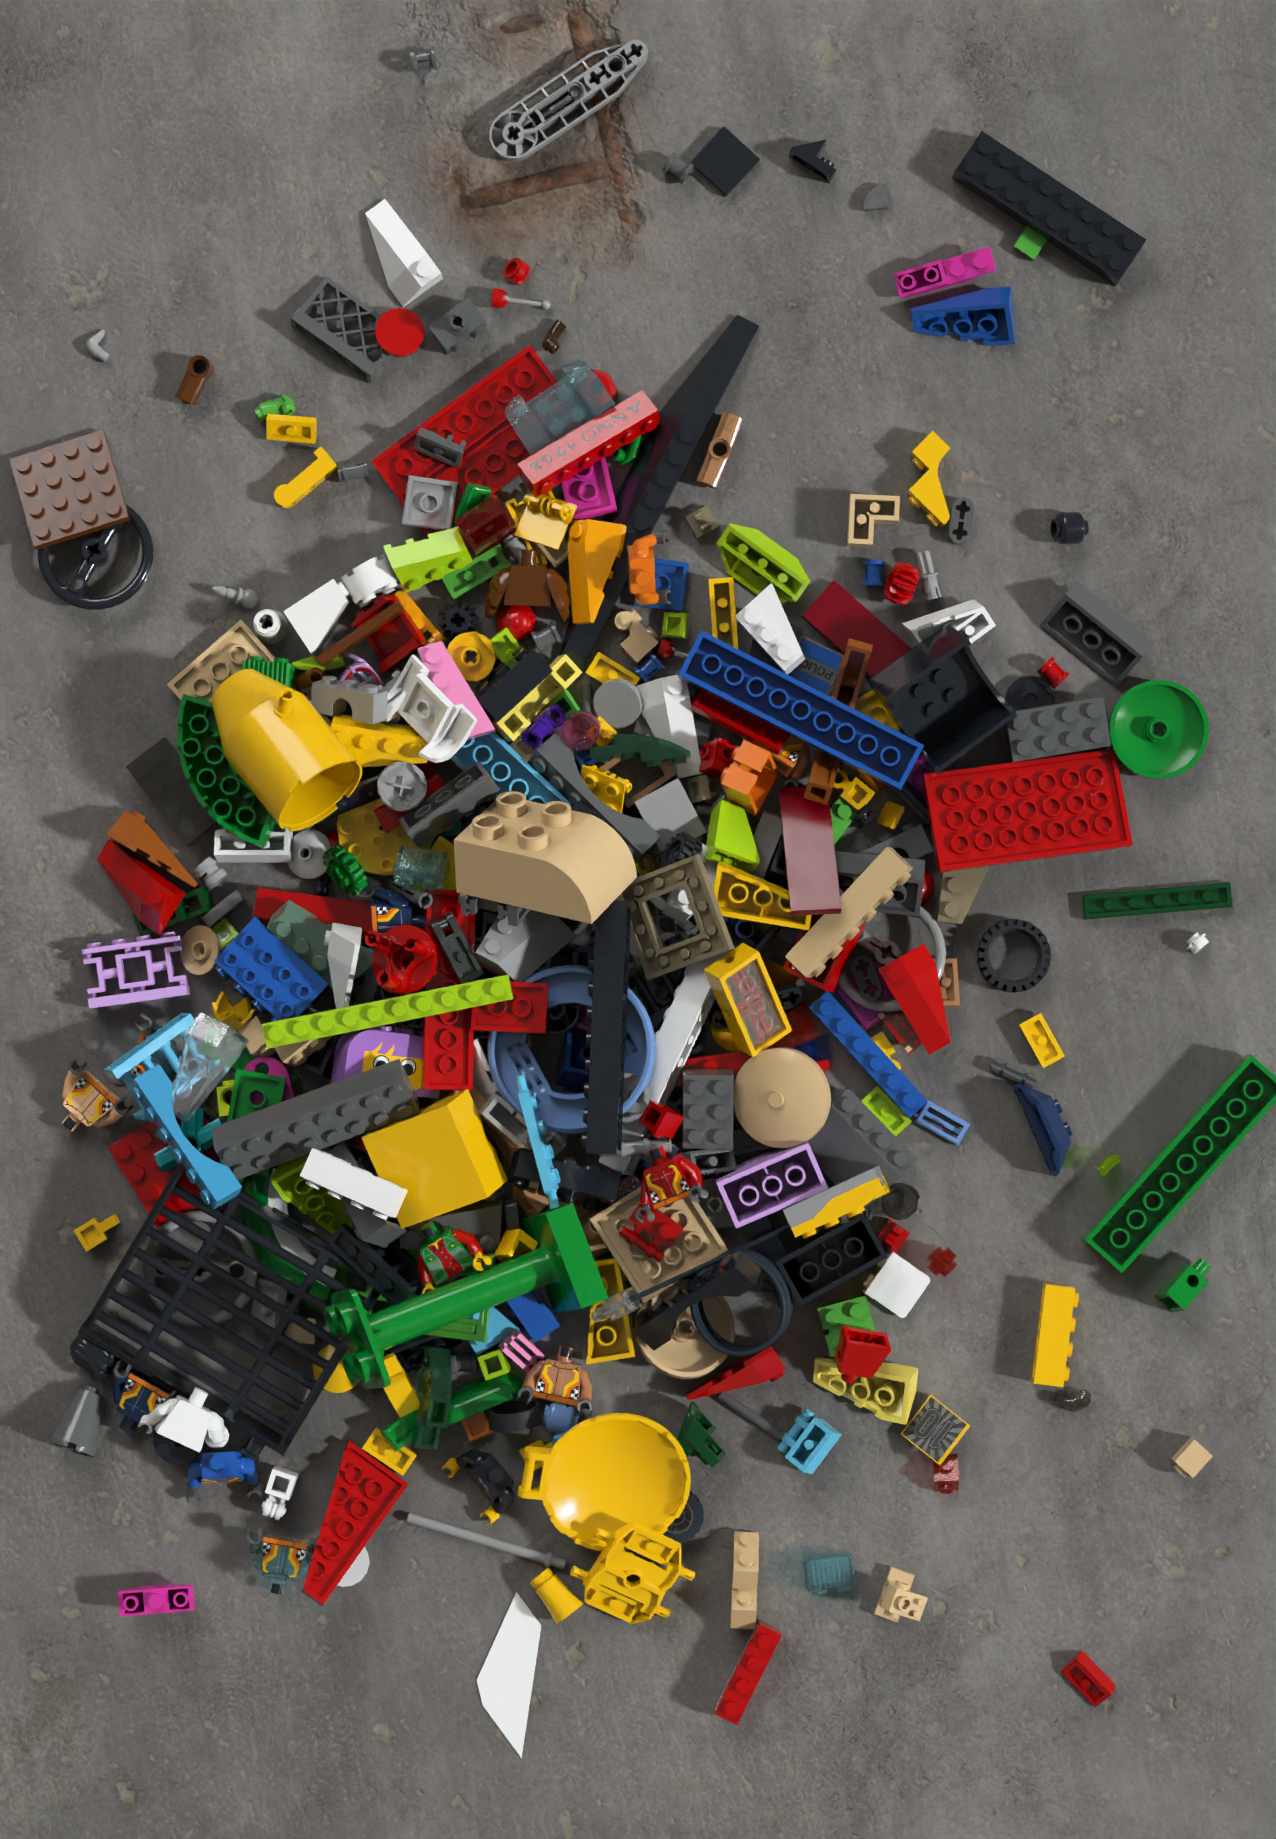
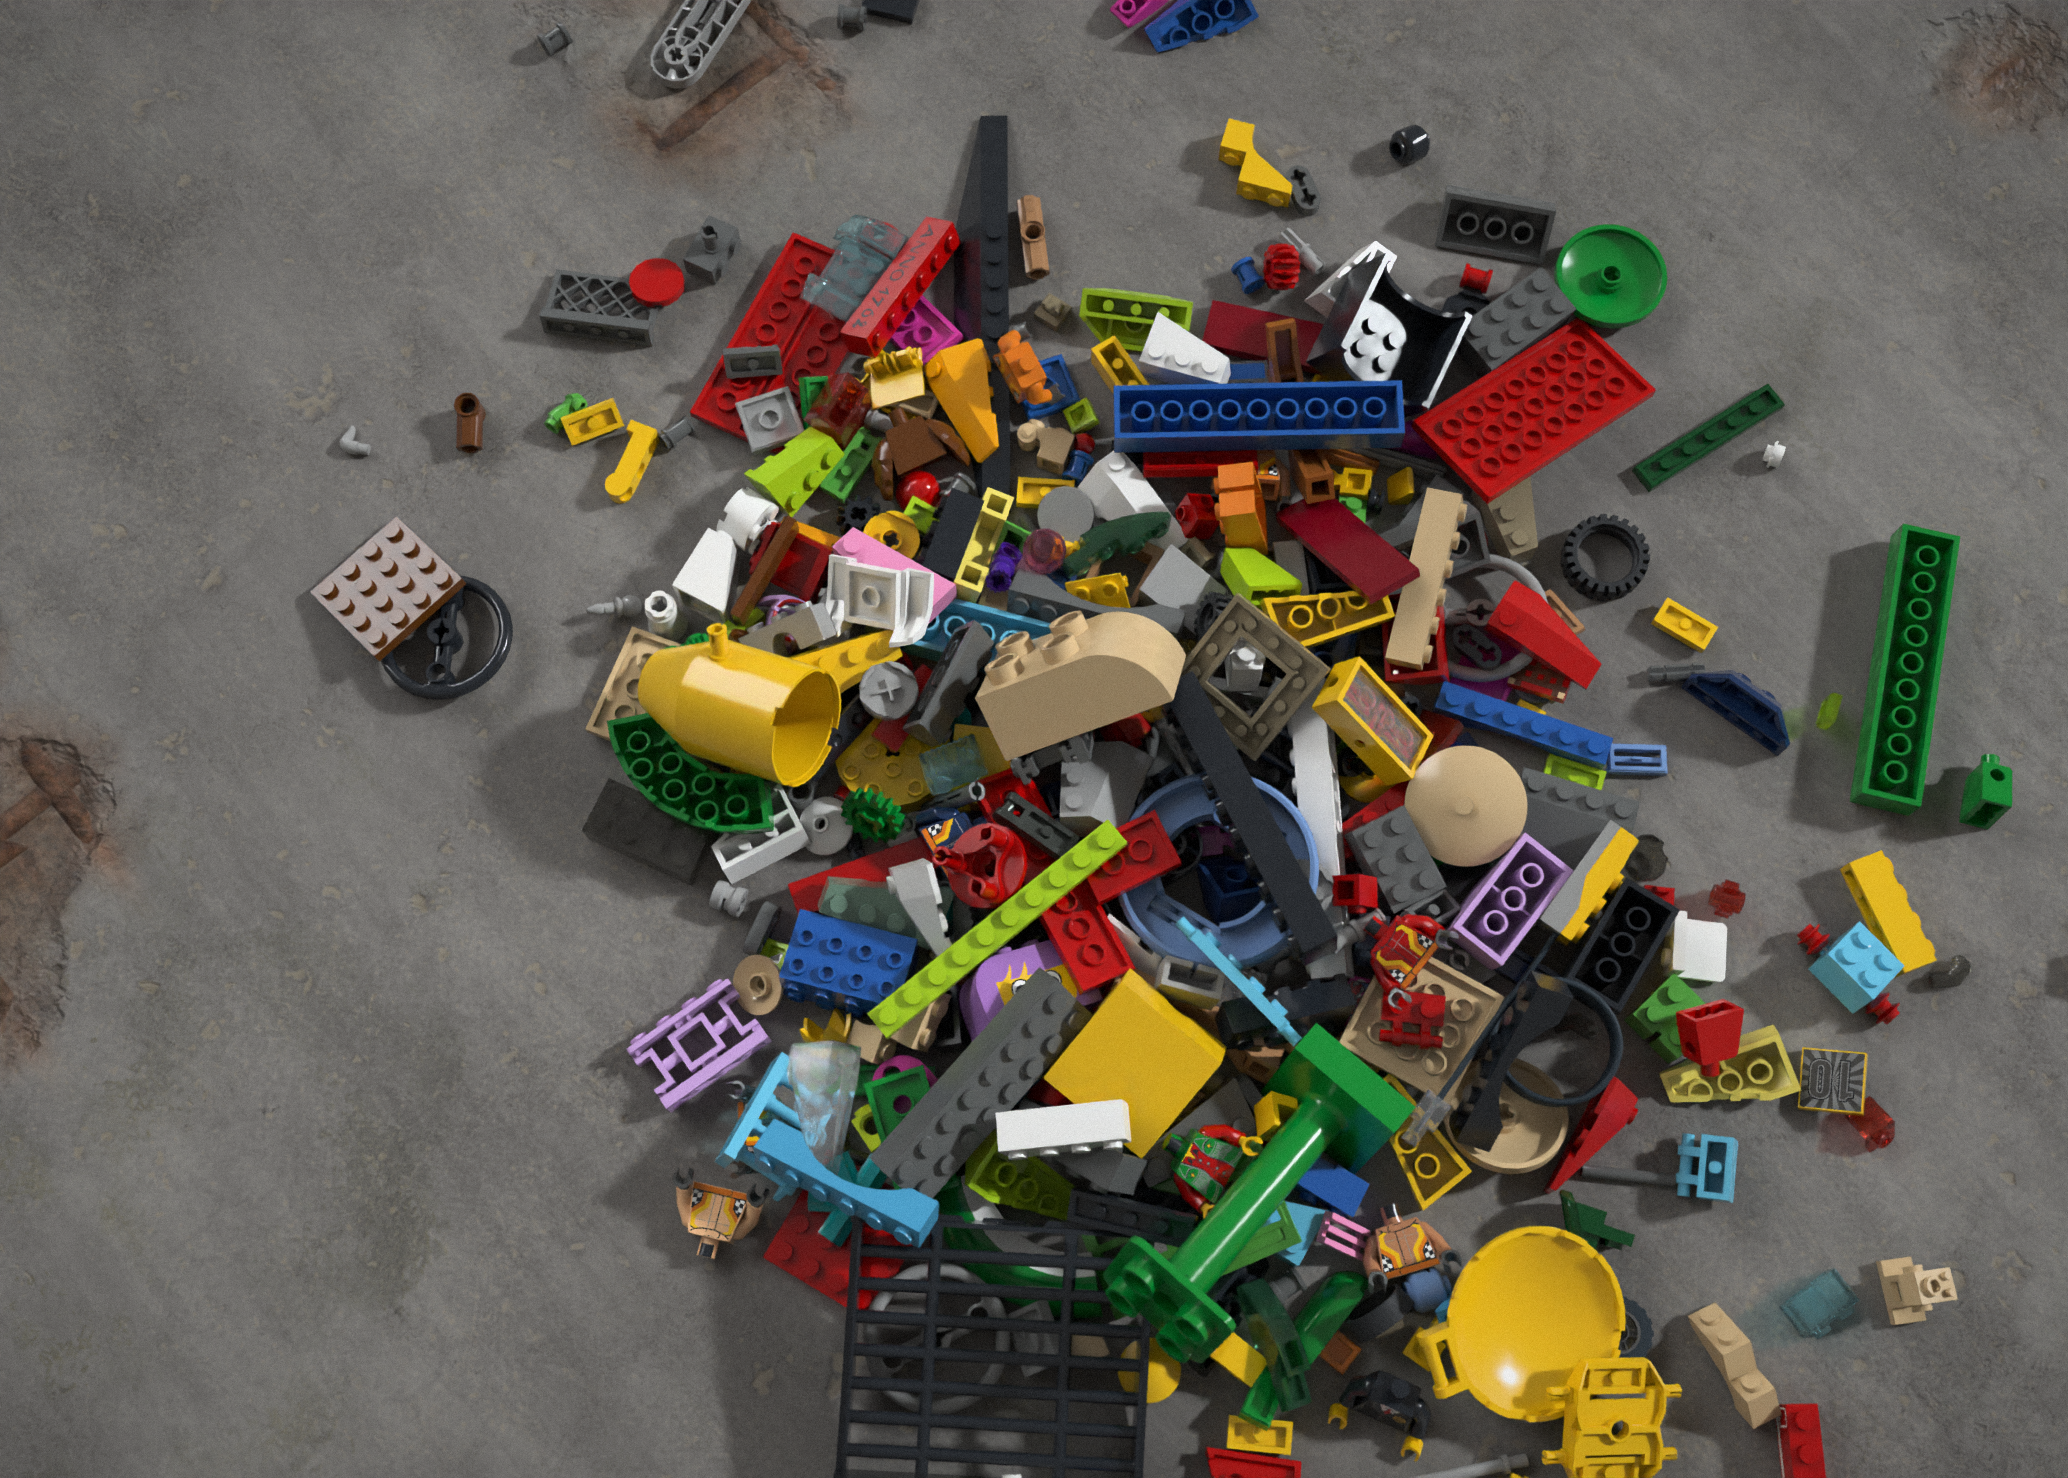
camera: 30 degrees left, 15 degrees down
(94, 1232) = (794, 1362): yellow plate -> none
(143, 839) = (633, 900): dark orange wedge -> none
(145, 890) = (662, 950): red wedge -> none
(192, 905) = (708, 959): dark green slope -> none
(403, 259) = (625, 215): white wedge -> none
(493, 1363) = (1320, 1266): lime brick -> none
(501, 299) = (742, 207): hinge -> none
(516, 271) = (744, 176): red tile -> none
(550, 341) = (811, 219): dark brown arm -> none
(625, 455) = (945, 285): green arm -> none
(865, 512) = (1210, 222): tan brick -> none
(1000, 1361) = (1854, 969): none -> medium azure brick

